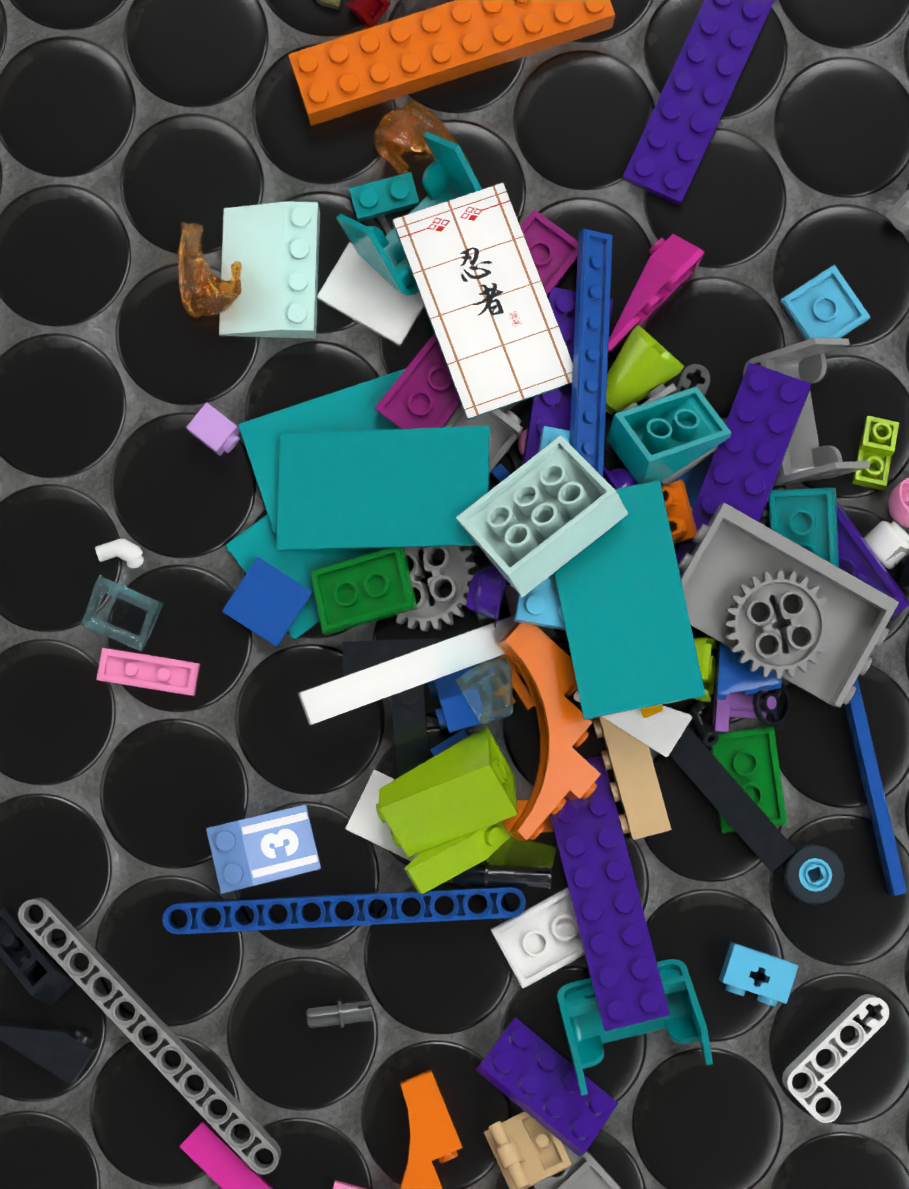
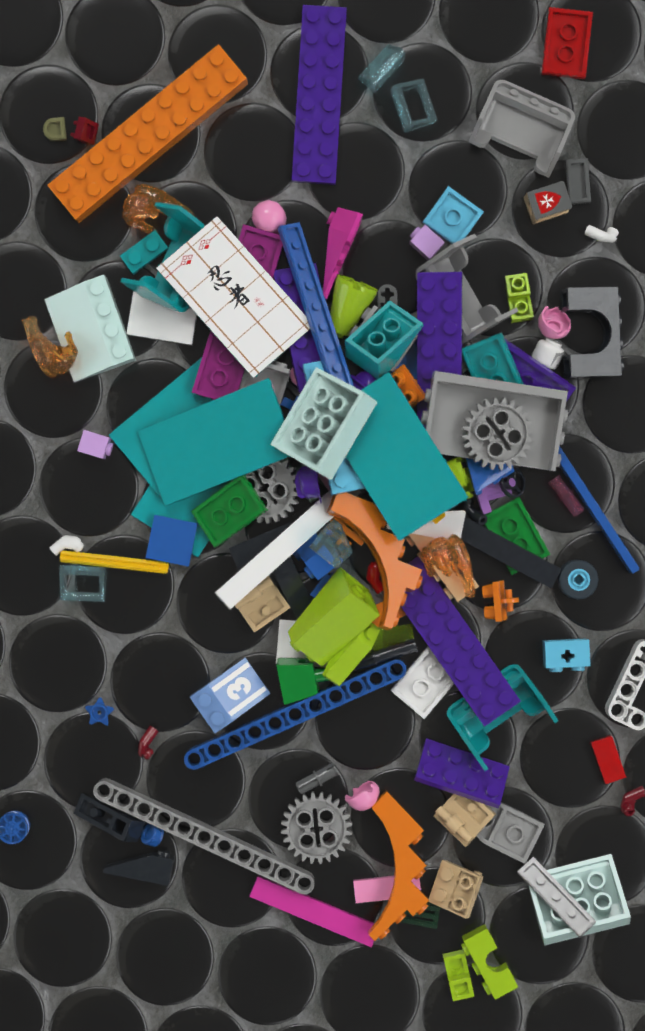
camera: 20 degrees left, 5 degrees up
(64, 806) = (94, 716): none -> blue plate
(76, 1005) = (152, 835): none -> blue tile
(119, 868) = (145, 741): none -> dark red arm
(148, 671) = (114, 613): bright pink tile -> none
(176, 601) = (114, 562): none -> yellow axle
(340, 1091) = (297, 829): none -> light grey gear
(358, 737) = (262, 604): none -> tan plate
(368, 862) = (298, 678): none -> green torso
(396, 1065) = (364, 796): none -> bright pink hair
(527, 760) = (373, 577): none -> red arm
(573, 211) = (268, 216): none -> bright pink hair
(647, 766) = (449, 552): none -> clear orange hair
(686, 875) = (499, 610): none -> orange hips
(761, 1148) = (608, 759): none -> red tile
(775, 327) = (426, 242): none -> lavender brick
(805, 72) = (382, 67): none -> clear light blue tile
(810, 137) = (402, 109): none -> clear light blue tile
(840, 751) = (566, 495): none -> clear pink axle

